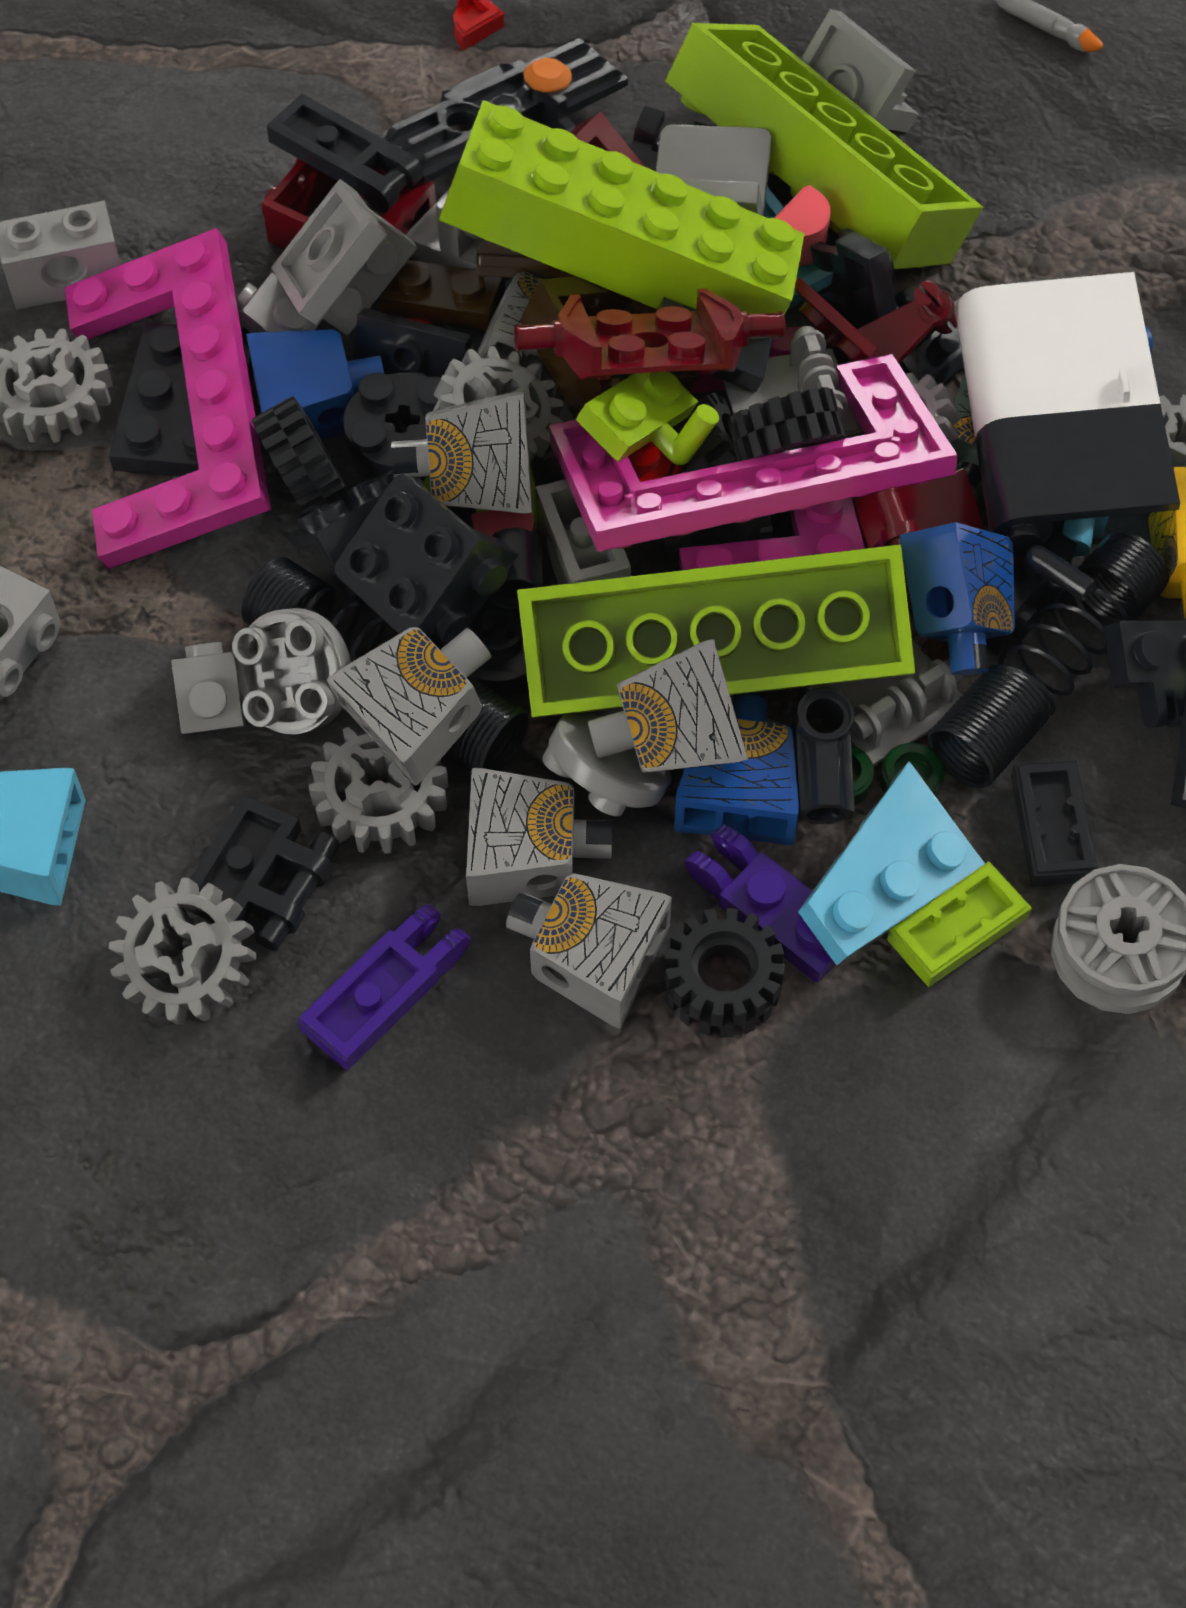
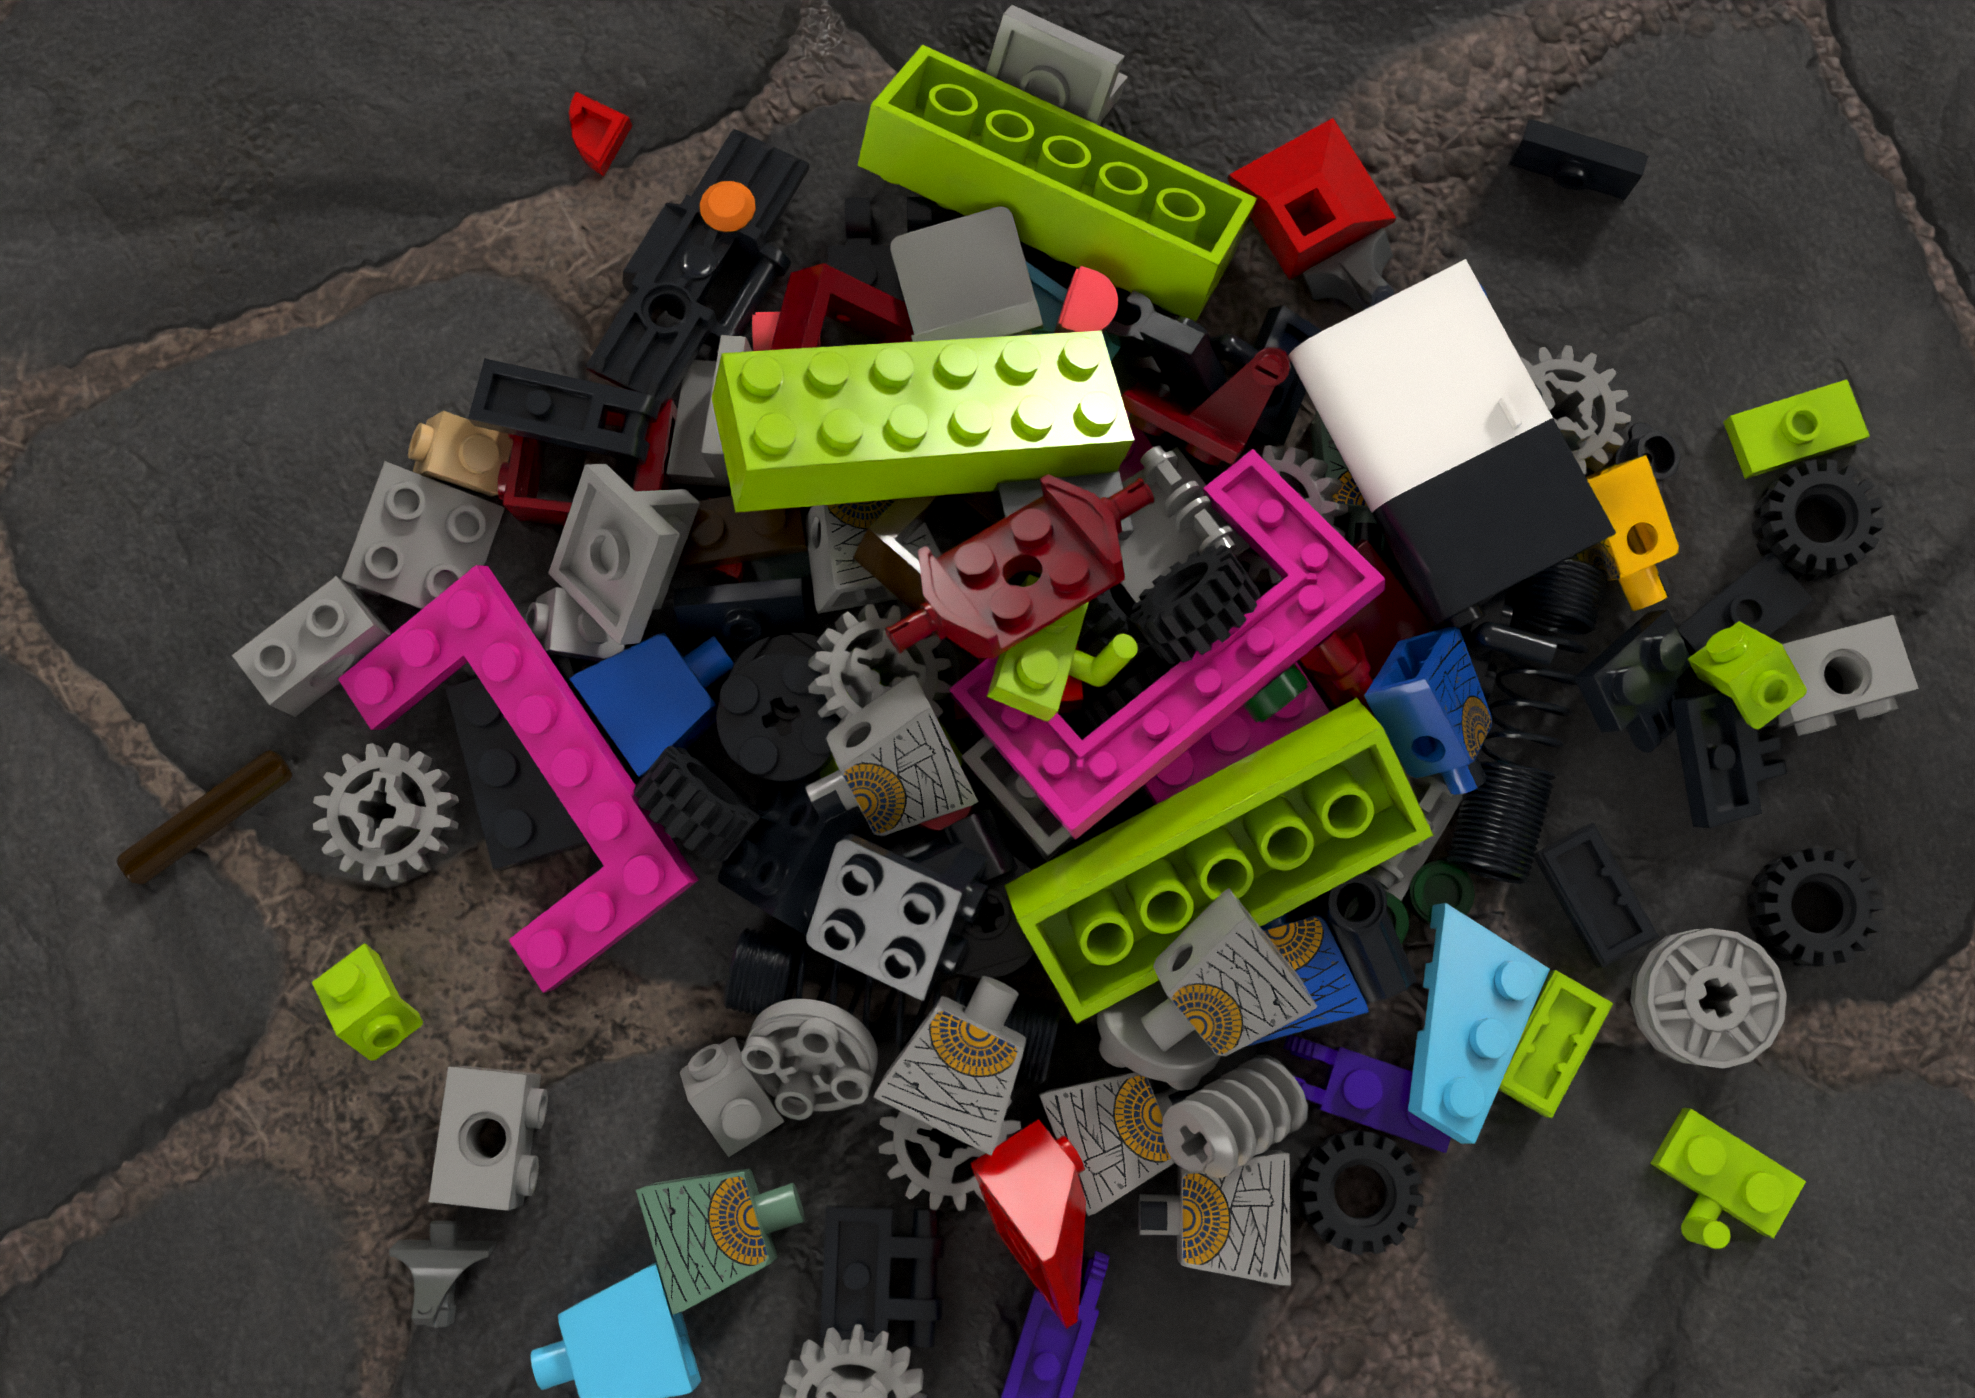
camera: 20 degrees left, 20 degrees up
(136, 779) = (714, 1231): none -> sand green torso
(180, 204) = (418, 537): none -> light grey hinge
(245, 172) = (459, 452): none -> tan bracket
(423, 845) = (1039, 1211): none -> red slope
(635, 844) = (1234, 1117): none -> light grey piece
(825, 523) = (1276, 694): none -> dark green tile
(1034, 238) = (1312, 198): none -> red slope
(1081, 1101) = (1726, 1178): none -> lime plate

